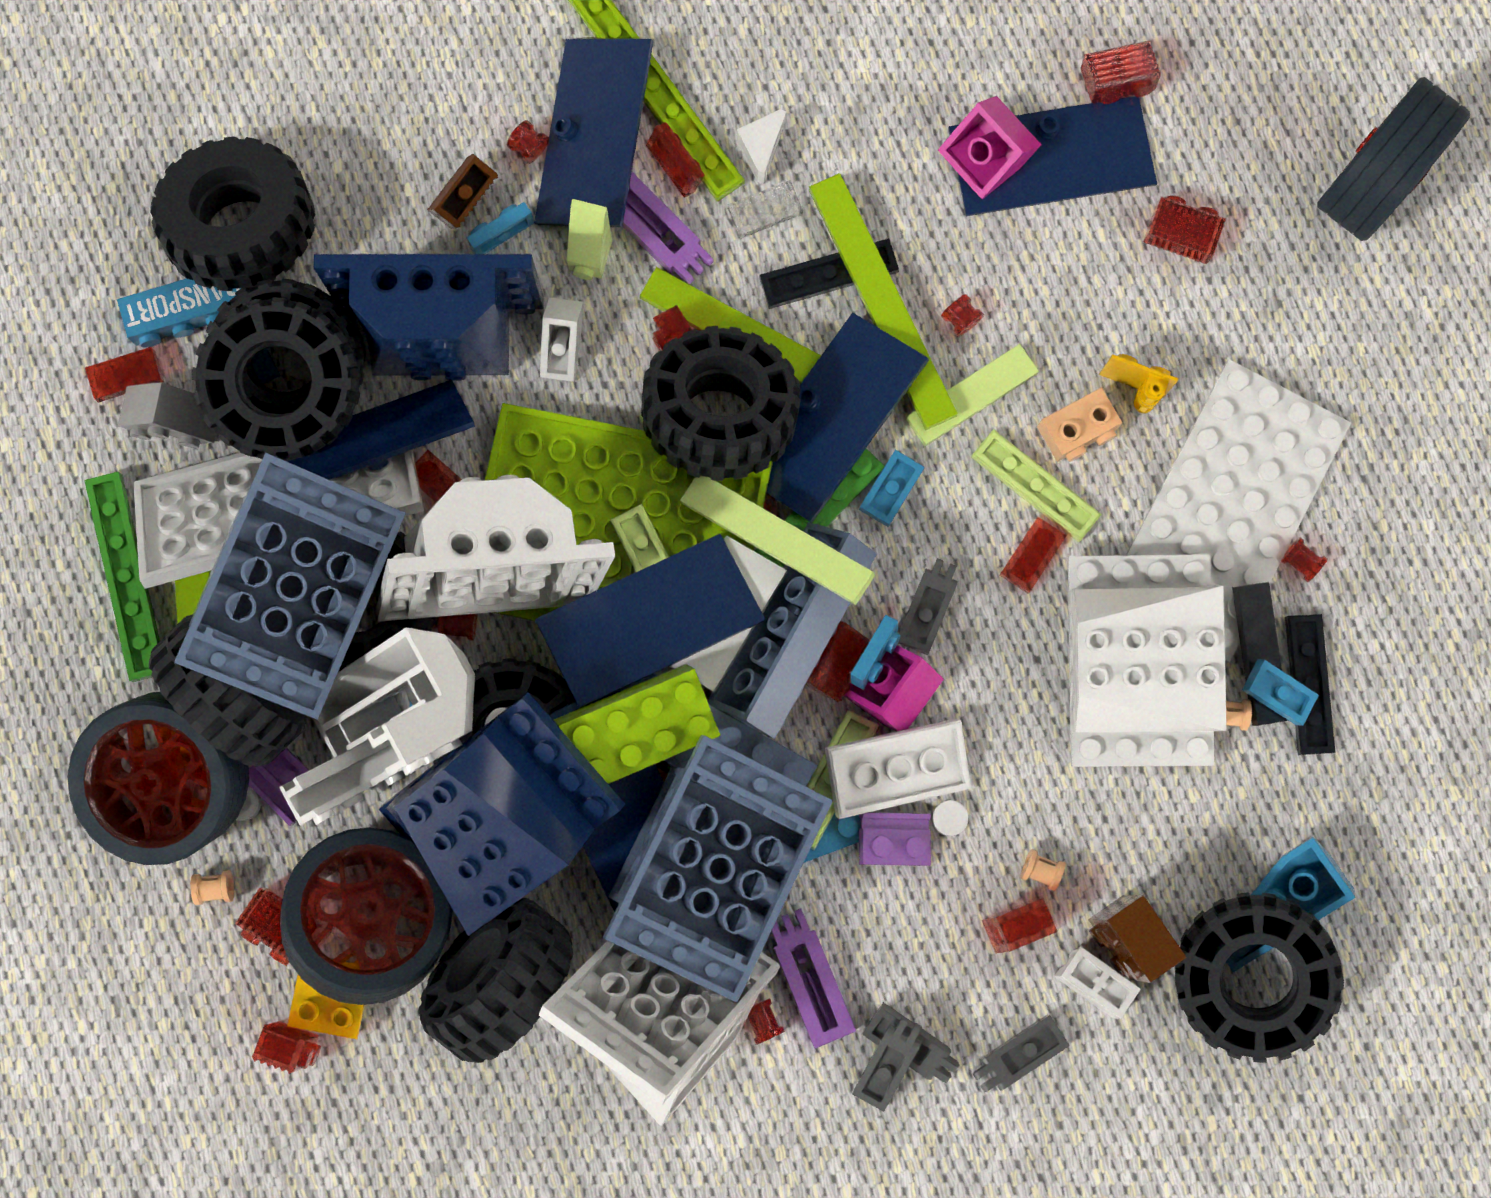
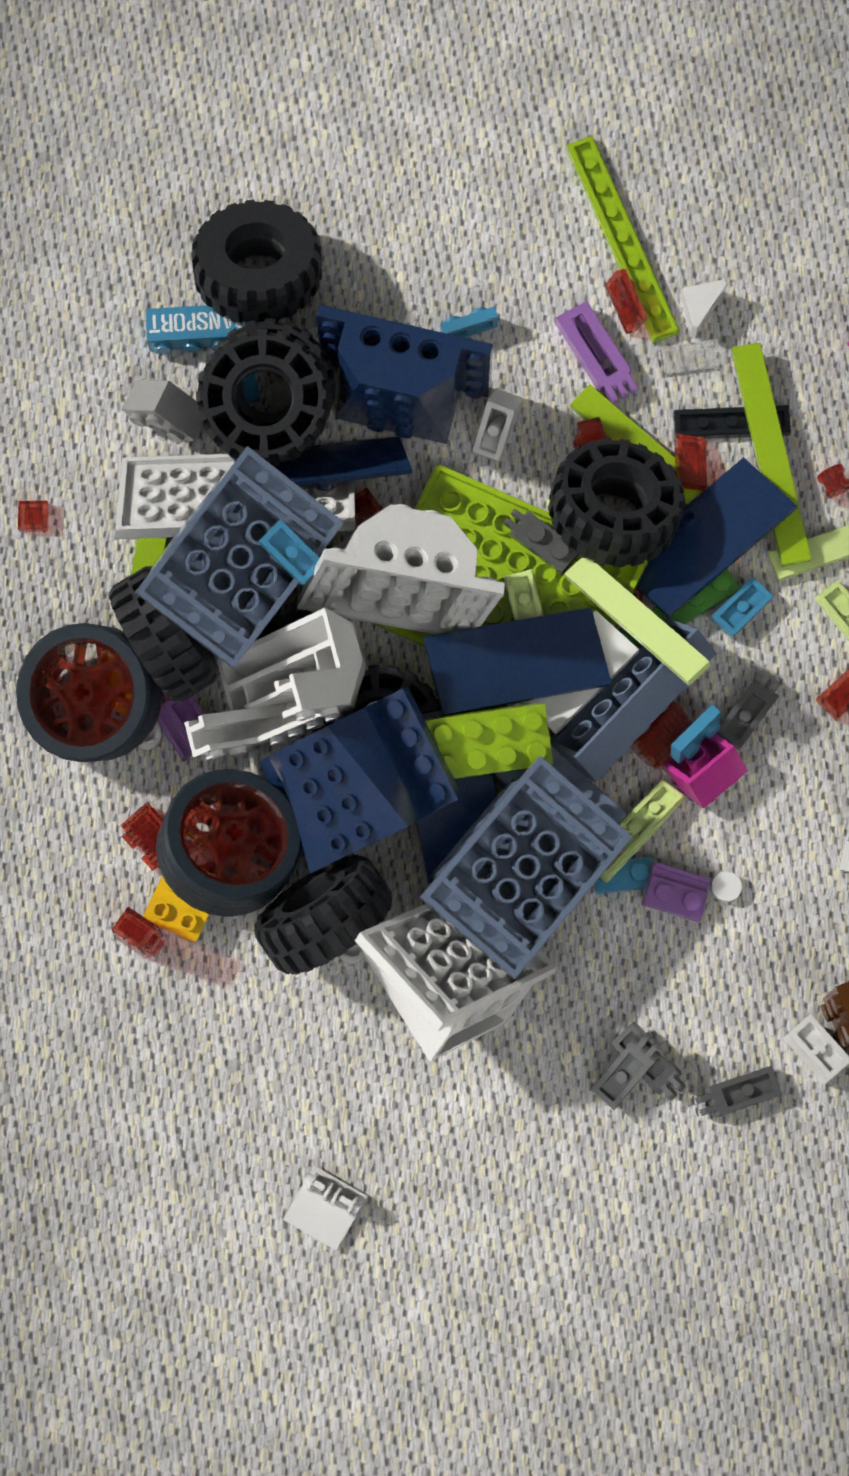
camera: 20 degrees right, 5 degrees down
(45, 575) = (33, 516): none -> clear red tile
(112, 376) = (125, 370): clear red plate -> none
(120, 561) = (97, 531): bright green plate -> none
(212, 887) = (107, 794): light nougat bush -> none
(349, 566) = (290, 551): none -> dark azure plate
(458, 625) = (364, 632): clear red bush -> none
(463, 192) = (445, 287): reddish brown brick -> none
(527, 141) = (508, 260): clear red wheel -> none
(588, 240) = (539, 348): yellowish green slope -> none
(594, 128) = (564, 264): dark blue piece -> none
(644, 467) = (541, 540): none -> dark grey hinge
(764, 1022) = (531, 1012): clear red bush -> none
(793, 331) = (691, 461): none -> clear red tile
(815, 990) = (580, 1000): medium lavender hinge -> none
(898, 768) = (692, 833): white tile -> none
(1020, 925) = (764, 985): clear red torso -> none
(1043, 870) = (794, 947): light nougat bush -> none

